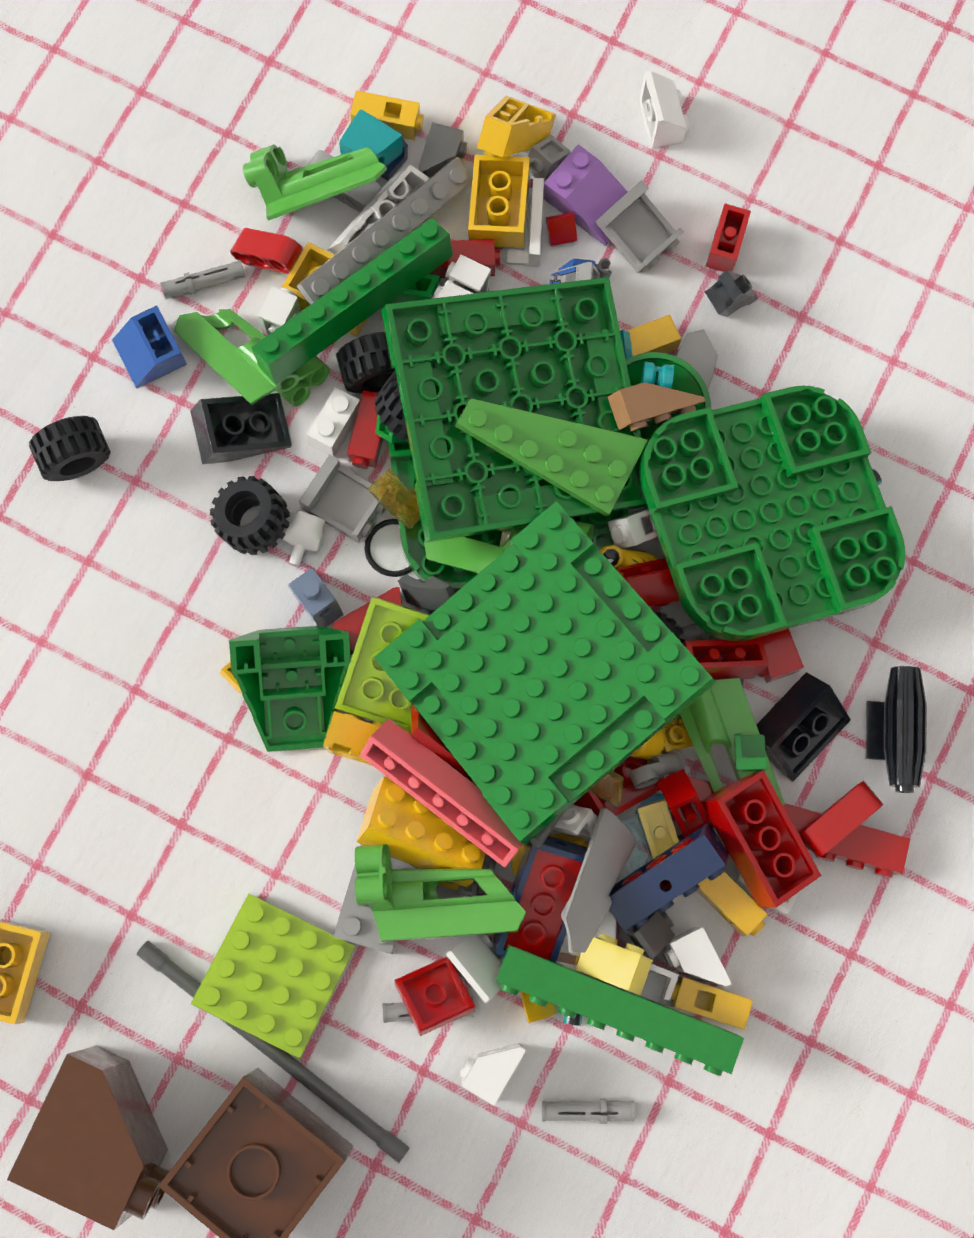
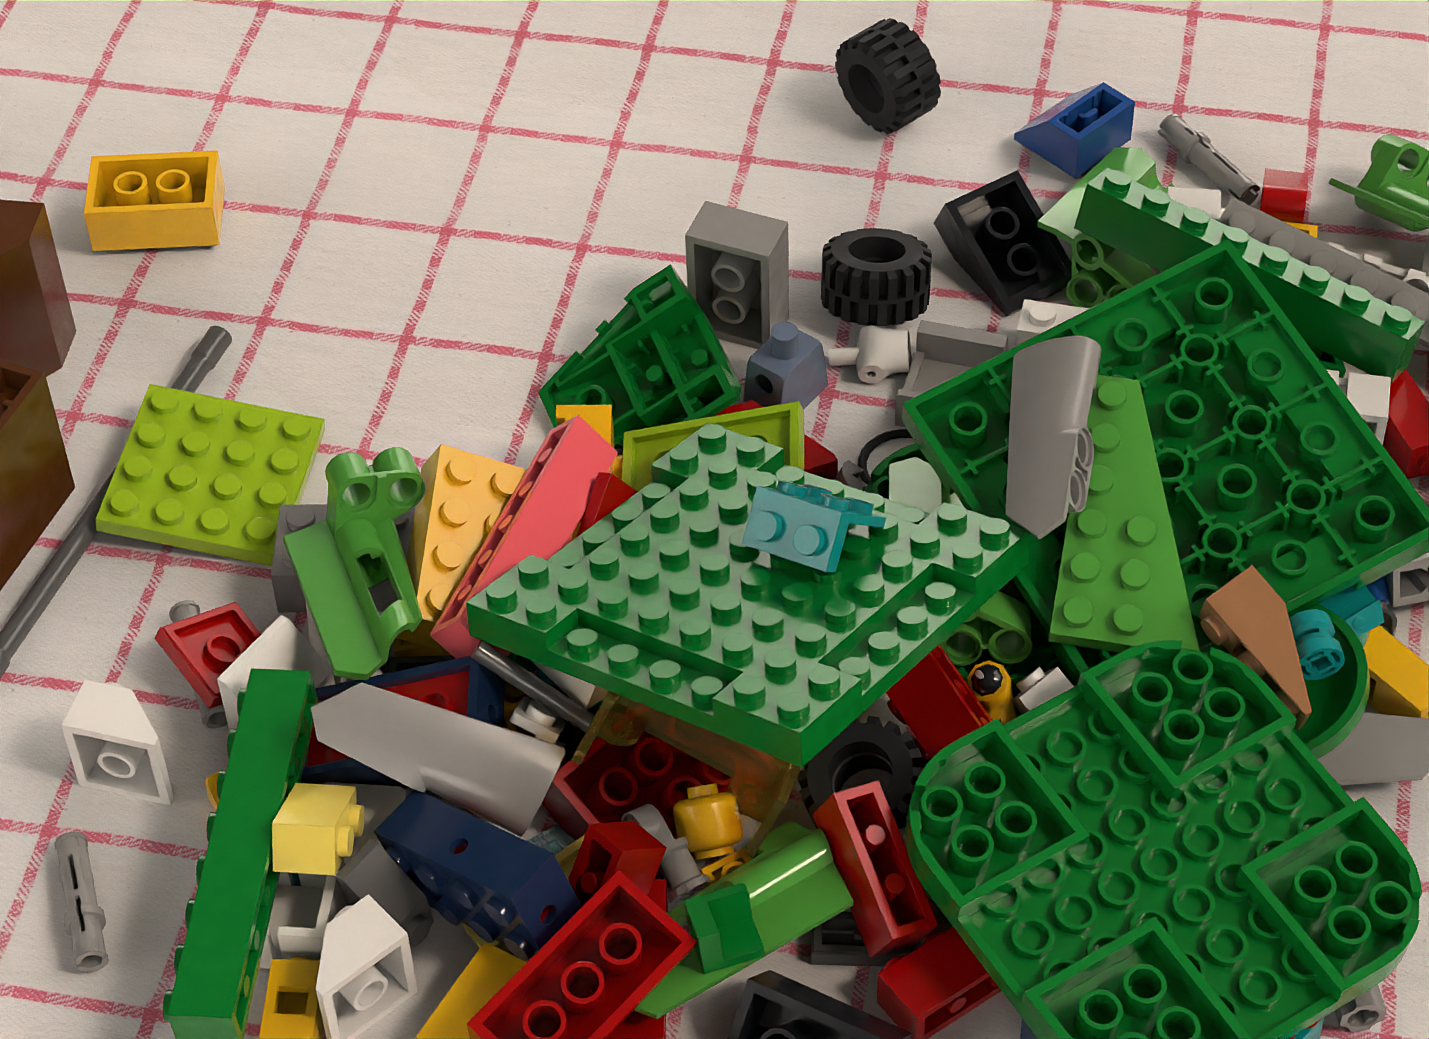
camera: 80 degrees right, 30 degrees down
(233, 599) = (739, 272): none -> light grey brick
(496, 464) = (1049, 432): none -> light grey panel
(529, 622) = (805, 523): none -> teal bracket

